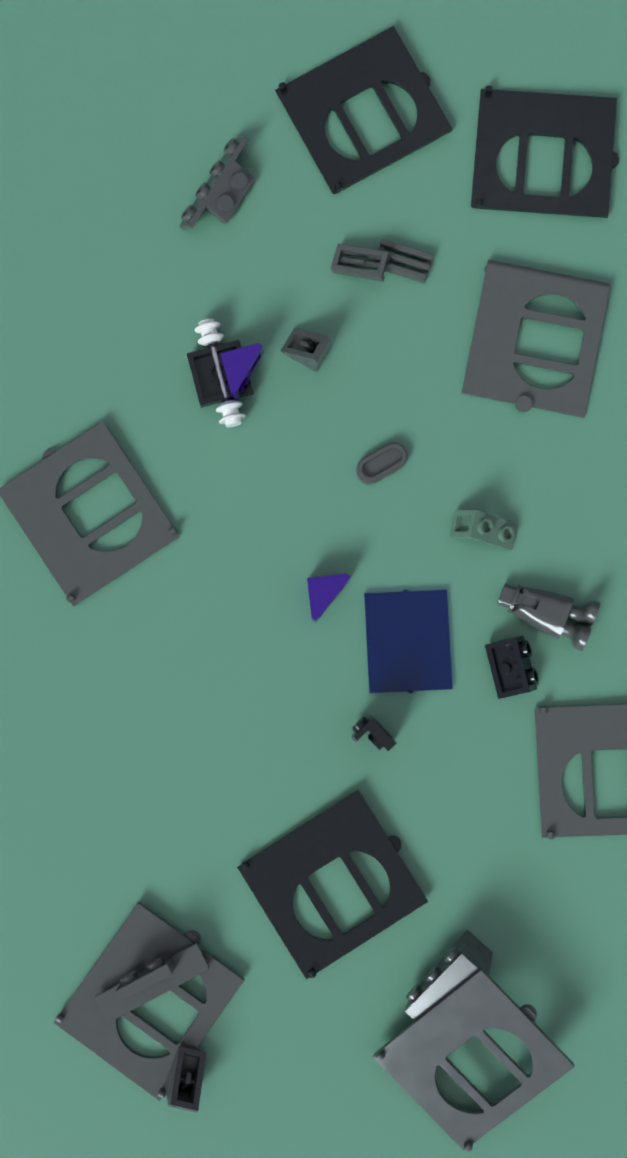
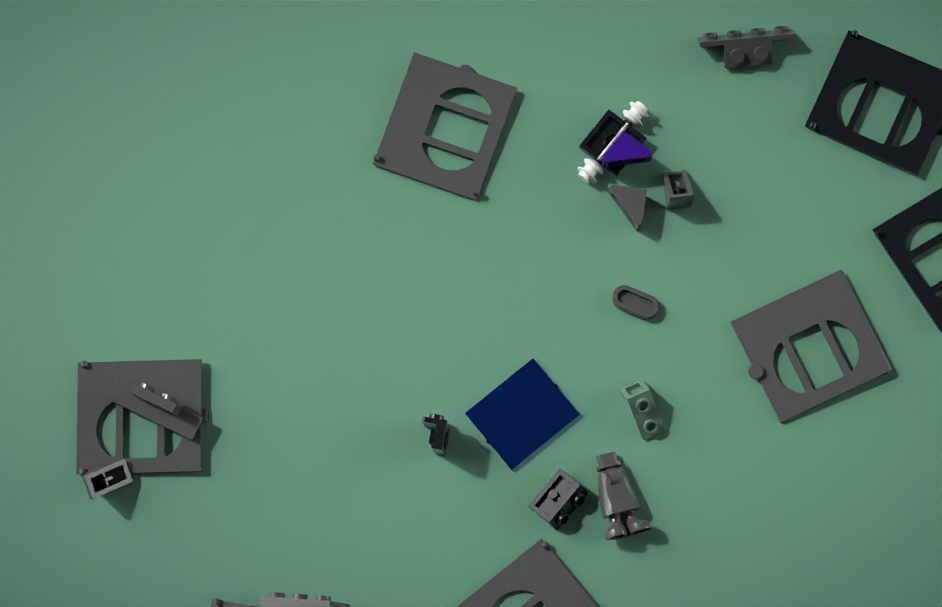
camera: 55 degrees right, 5 degrees down
(288, 399) = (630, 202): none -> dark grey slope
(290, 861) = (348, 460): black door -> none
(323, 592) = (511, 328): dark purple slope -> none
(361, 252) = (774, 196): dark grey tile -> none
(410, 252) = (788, 192): dark grey tile -> none

